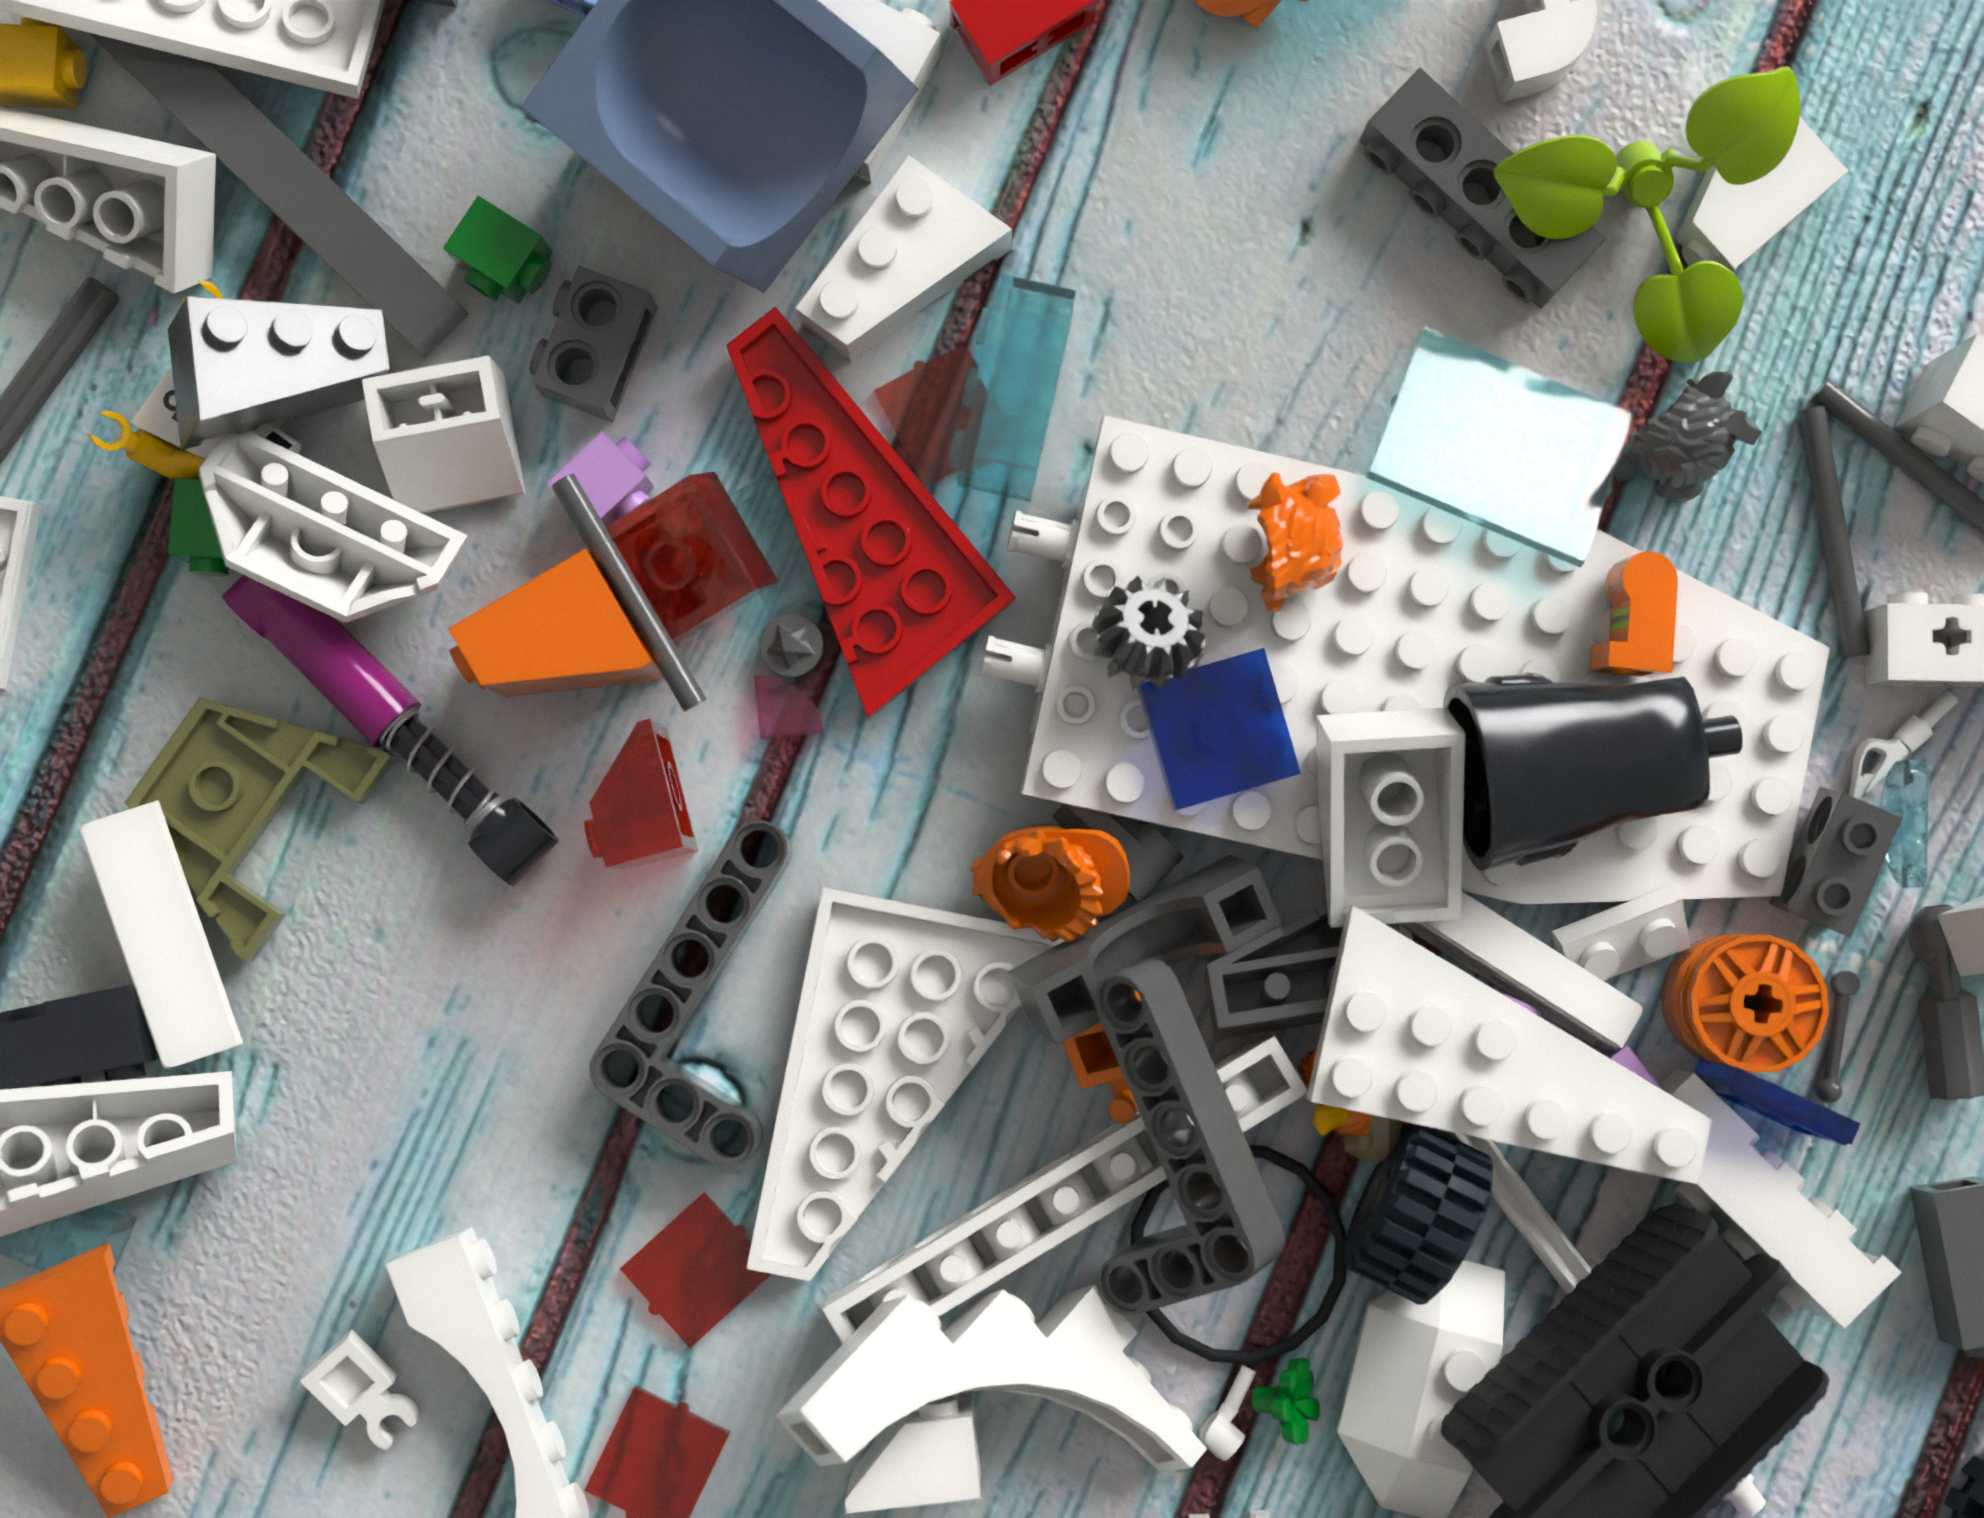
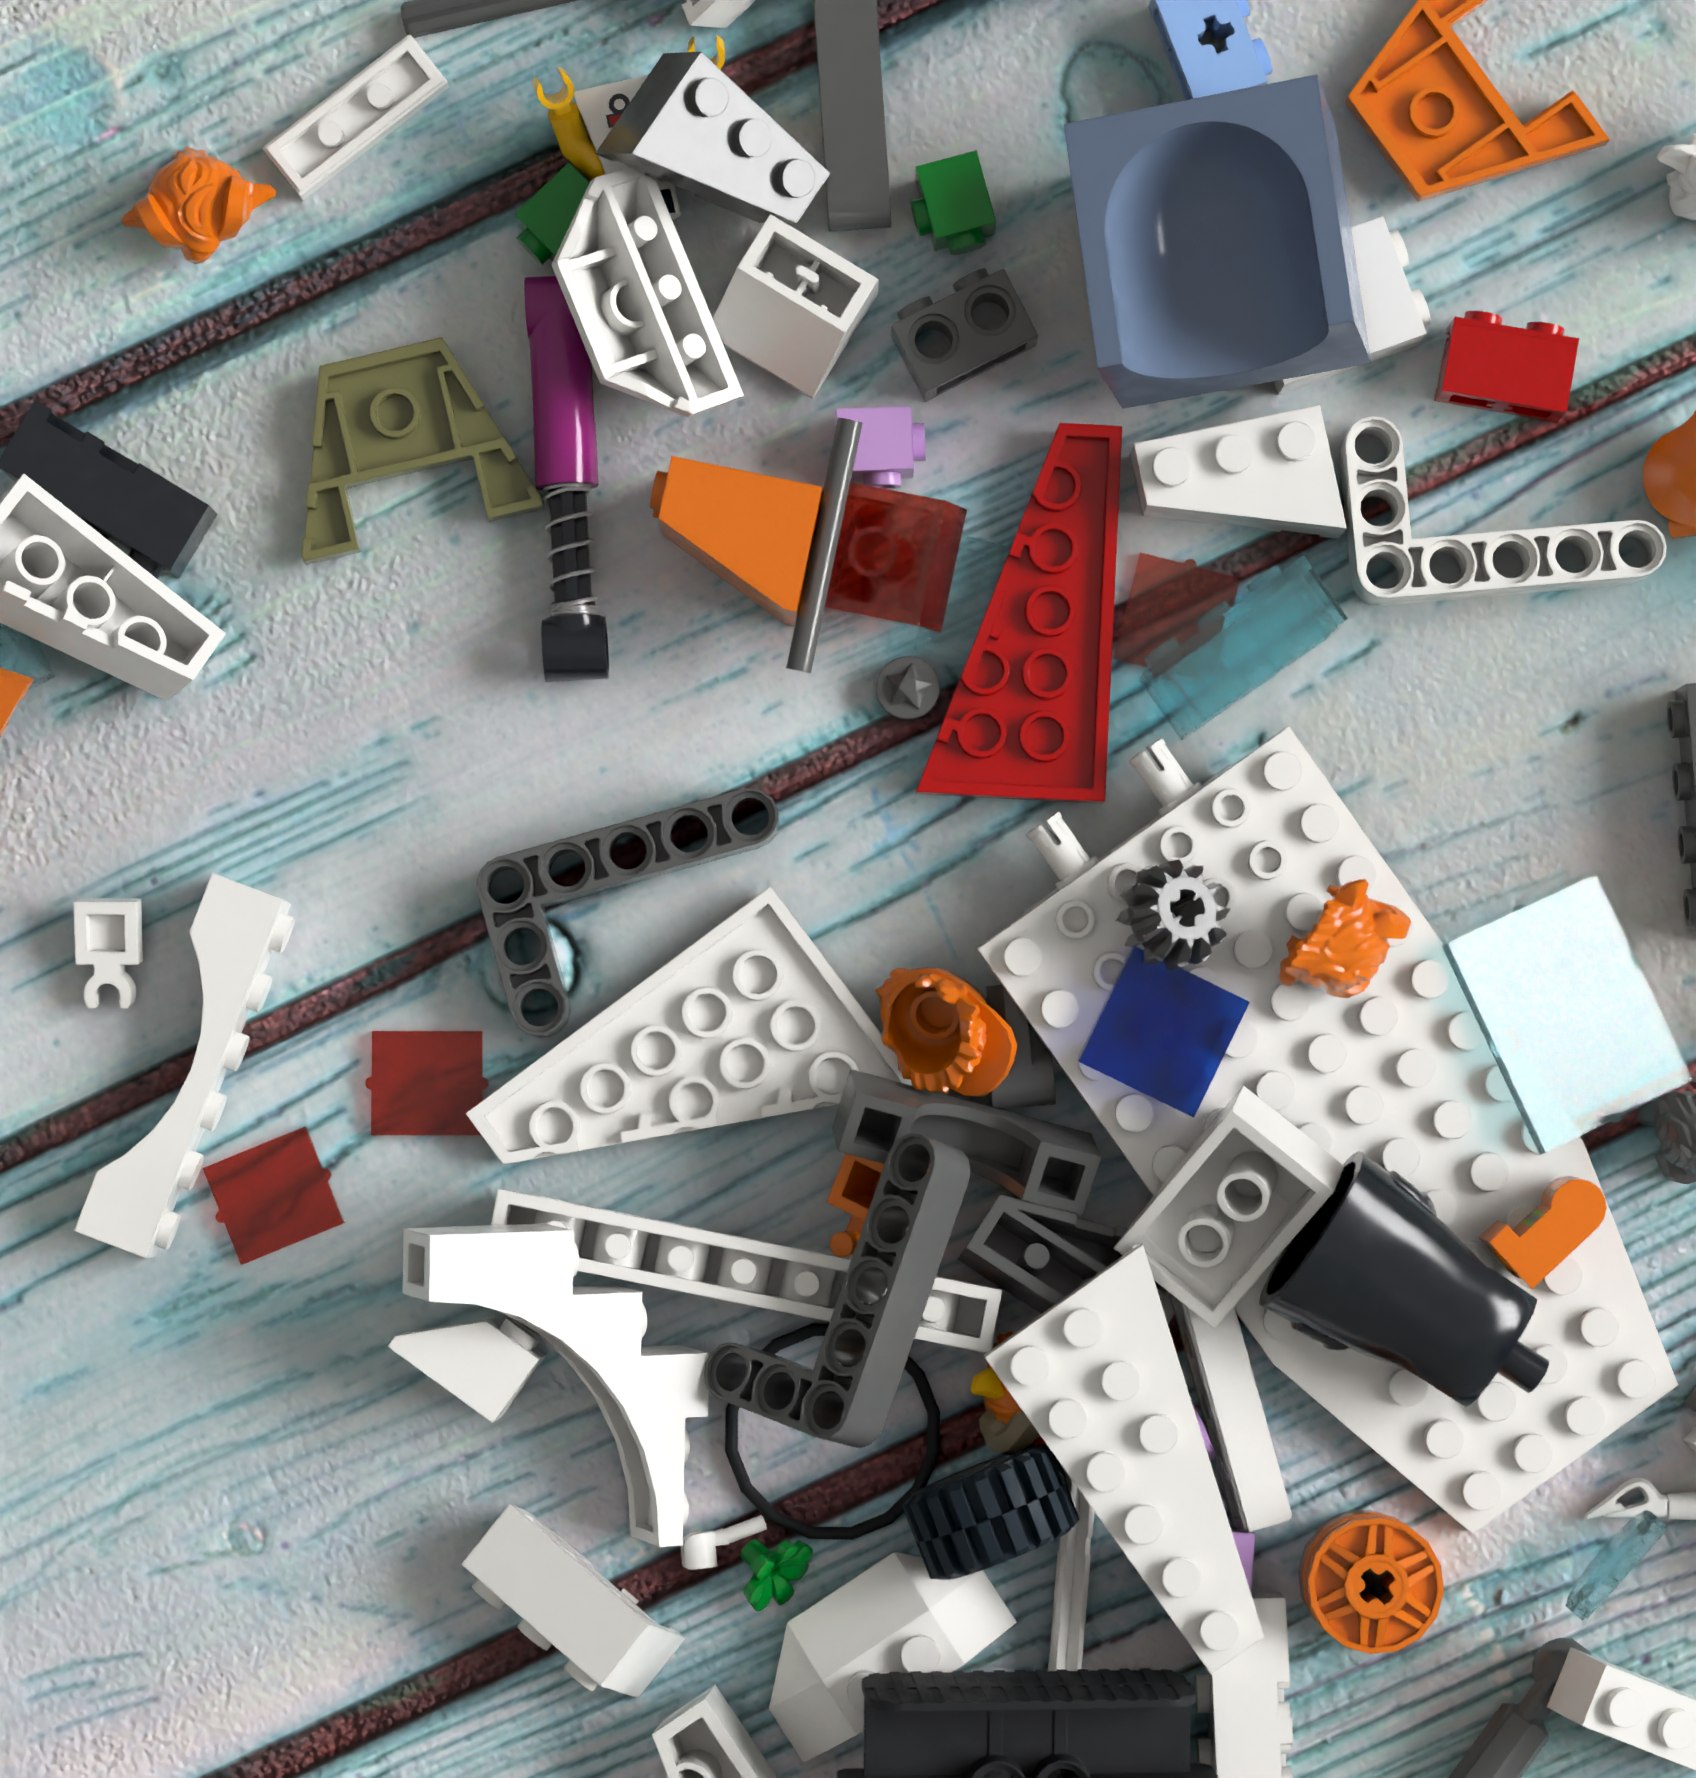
camera: 45 degrees right, 0 degrees up
(160, 934) = (261, 487): white slope -> none
(641, 804) = (693, 707): clear red slope -> none
(784, 710) = (860, 731): clear pink tile -> none
(1120, 168) = (1472, 551): none -> white beam
(1626, 935) = (1329, 1457): white plate -> none
(1777, 1103) = (1324, 1673): clear blue tile -> none
(1836, 860) = (1533, 1542): dark grey brick -> none
(1843, 985) = (1460, 1643): dark grey hinge -> none

